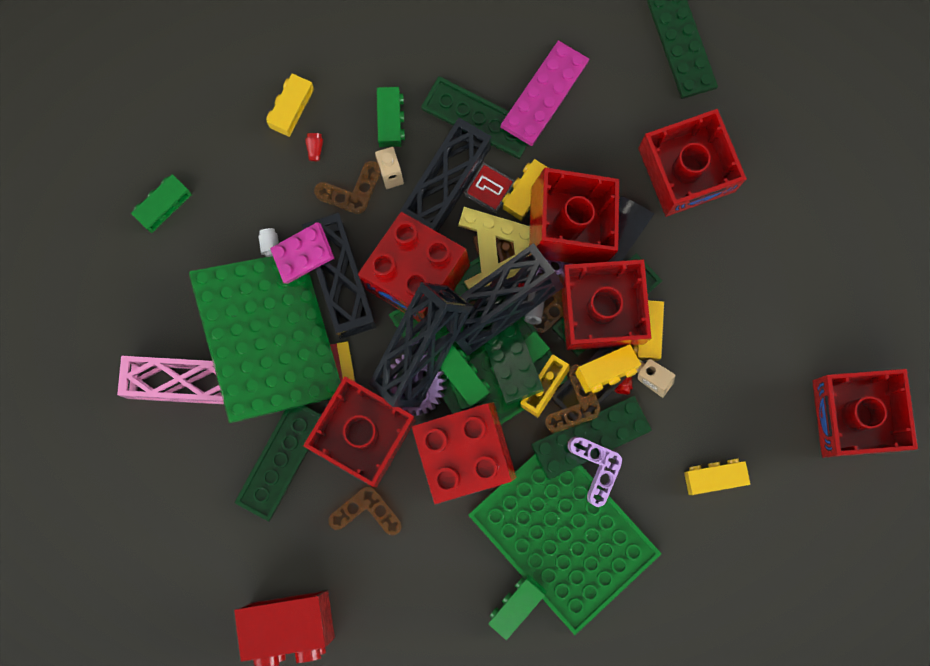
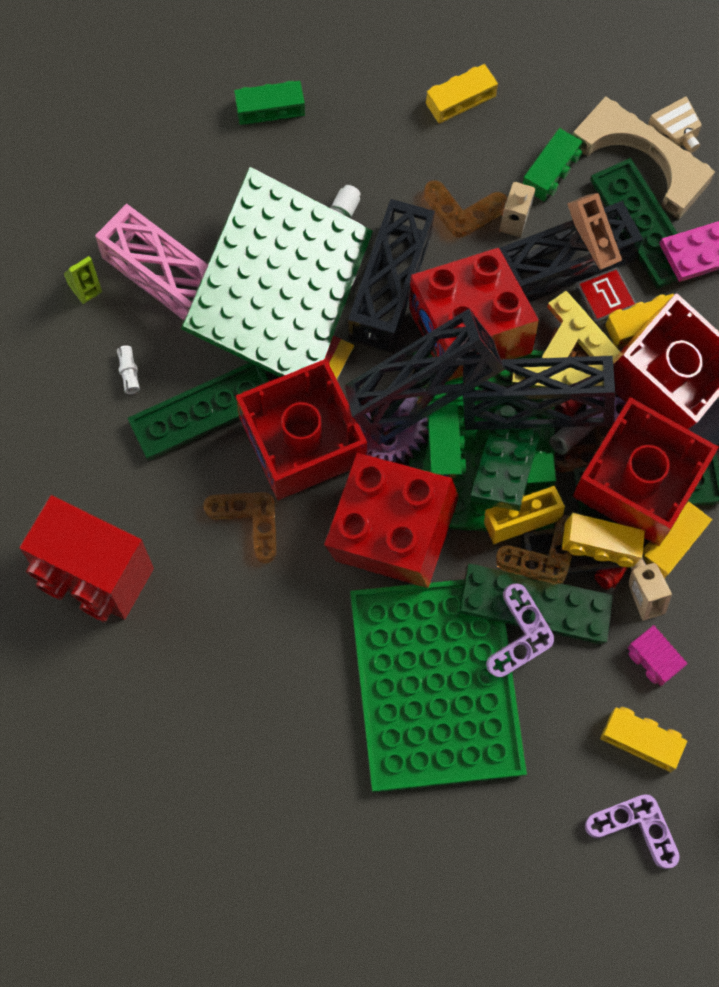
camera: 35 degrees right, 10 degrees down
(129, 428) = (83, 280): none -> lime slope
(209, 468) = (128, 370): none -> white pin
(302, 253) = (371, 224): dark pink plate -> none
(314, 146) = (458, 143): red cone -> none
(453, 29) = (678, 124): none -> tan torso
(456, 153) = (595, 229): none -> nougat slope
(482, 62) = (684, 174): none -> tan arch
(516, 606) = (333, 716): green brick -> none
(688, 417) = (656, 656): none -> dark pink brick
(751, 528) = (644, 821): none -> lavender beam

